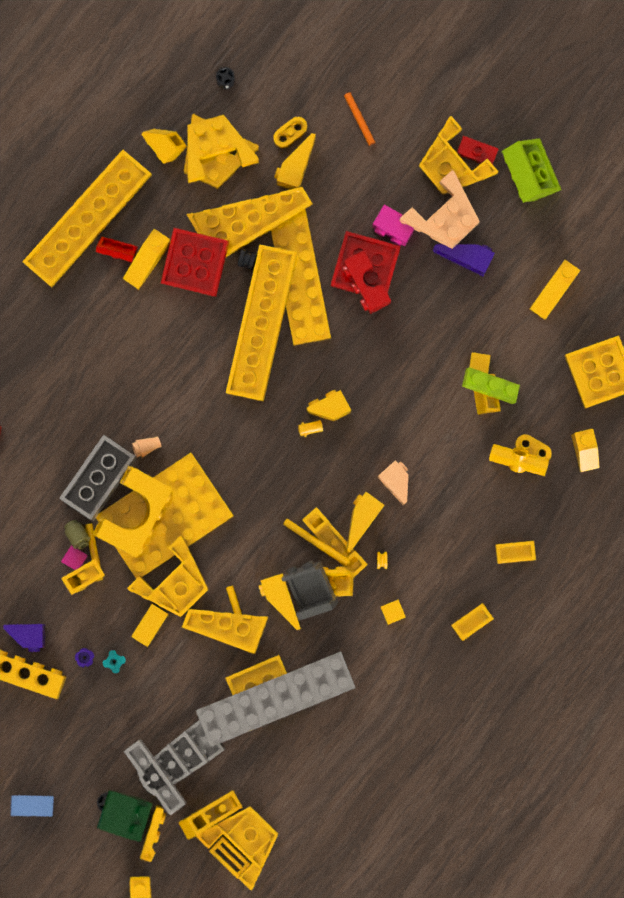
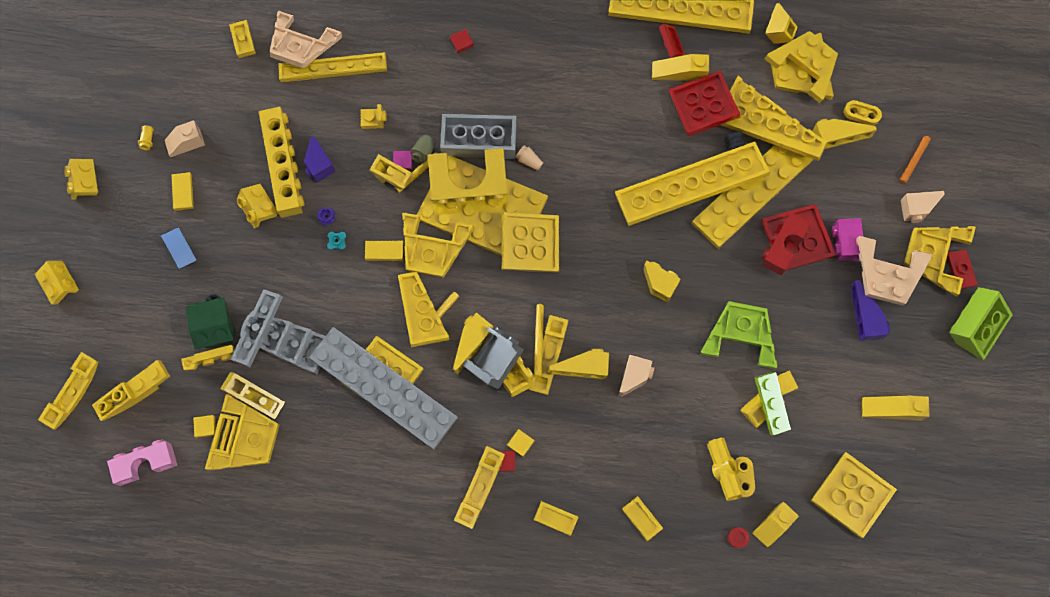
camera: 65 degrees right, 10 degrees down
(15, 560) = (373, 118): none -> yellow bracket
(34, 713) = (256, 204): none -> yellow bracket
(211, 871) = (204, 426): none -> yellow tile
(226, 74) = (869, 34): black wheel -> none
(226, 495) = (530, 242): none -> yellow plate
(310, 428) = (634, 279): yellow pin -> none
(381, 560) = (559, 405): yellow bush -> none
(399, 634) = (508, 463): none -> red tile
(403, 145) = (918, 205): none -> light nougat slope
(409, 669) = (480, 487): none -> yellow slope
(411, 362) = (743, 325): none -> lime wing
(577, 485) = (738, 537): none -> red tile

